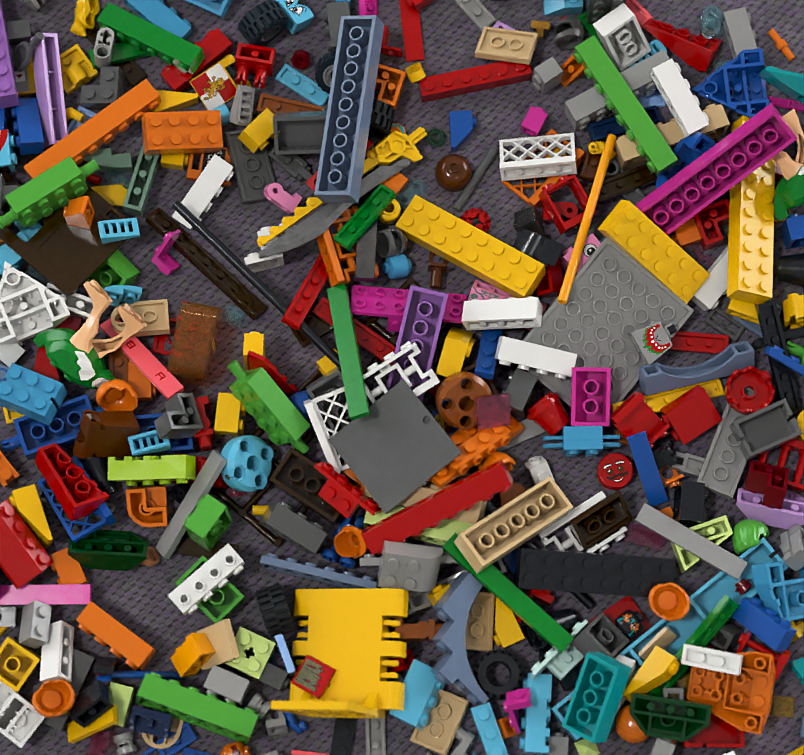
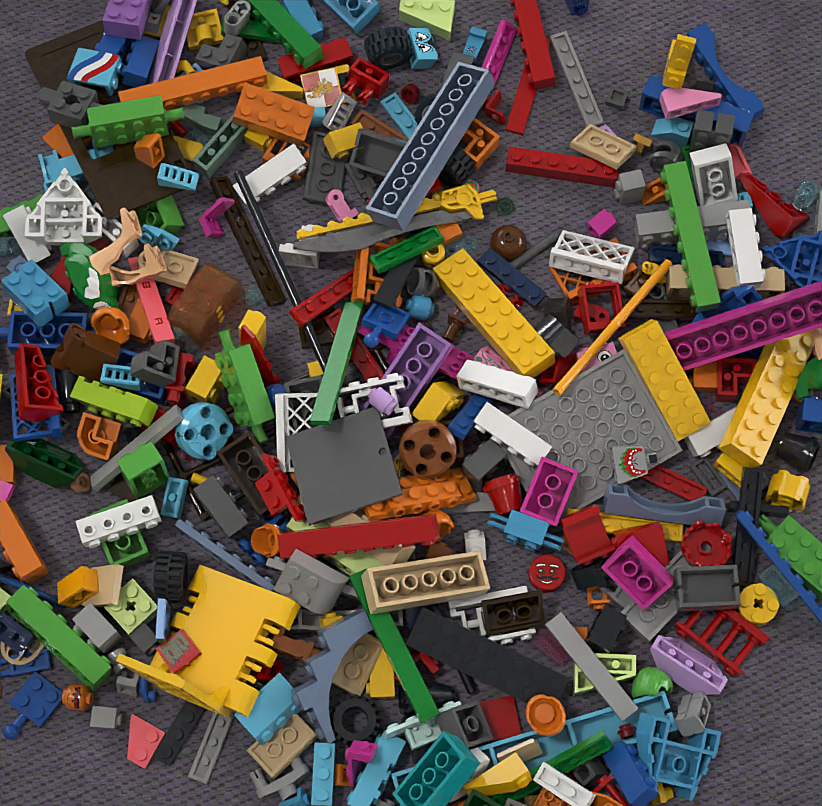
camera: 25 degrees right, 5 degrees down
(191, 385) = (184, 341): none -> clear light blue plate
(244, 536) = (174, 497): none -> medium azure brick
(373, 295) = (383, 322): none -> blue plate
(407, 372) = (382, 400): none -> lavender brick
(415, 72) = (509, 140): yellow beam -> none
(461, 127) = (531, 205): blue slope -> none
(471, 205) = (512, 278): none -> dark blue plate
(493, 411) = (450, 469): clear pink piece -> none
(629, 623) = (501, 723): black head -> none
(647, 468) = (577, 582): blue tile -> none
(699, 439) = (638, 572): none -> dark pink slope
(769, 481) = (690, 638): dark red brick -> none

